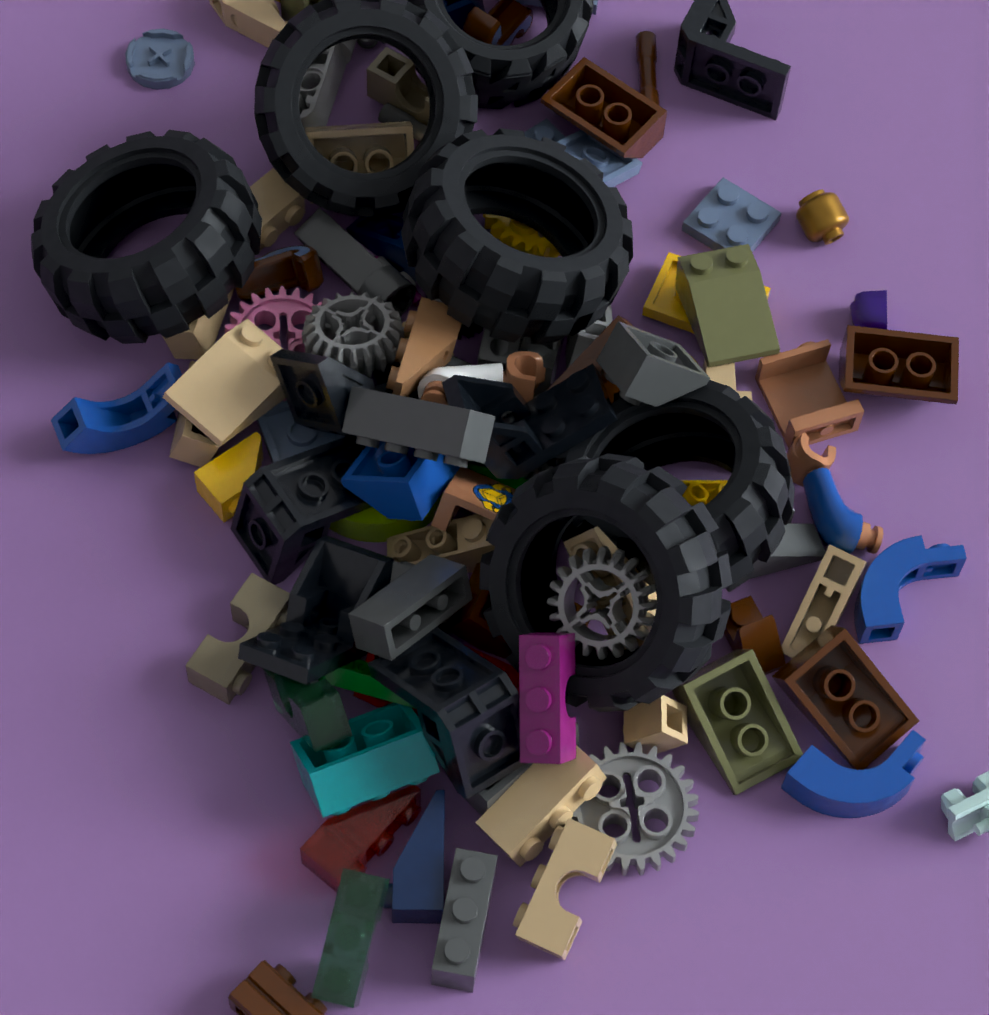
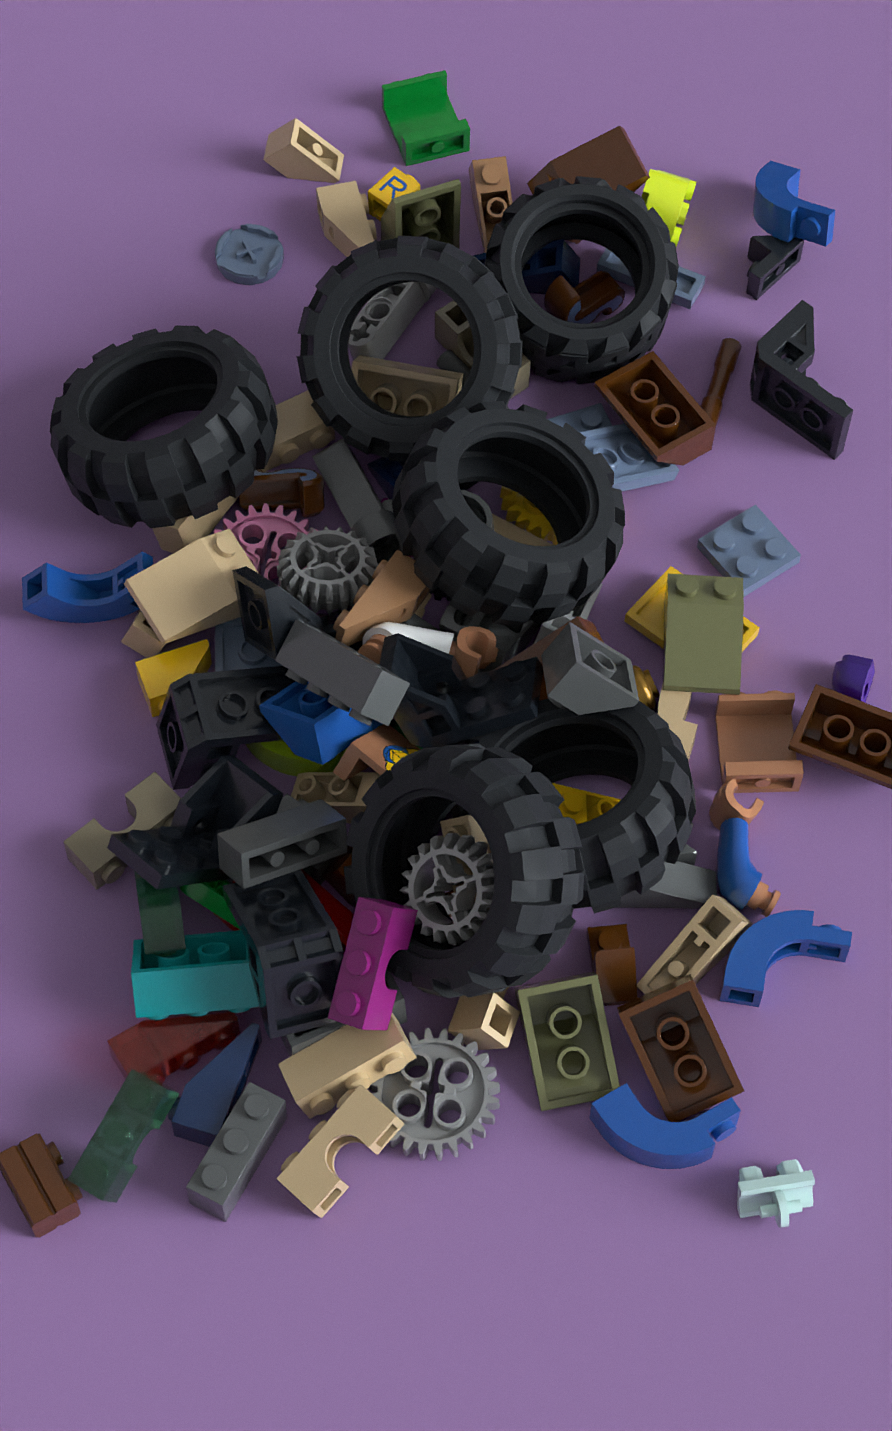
camera: 20 degrees right, 0 degrees up
(822, 216) = (839, 569): pearl gold head -> none

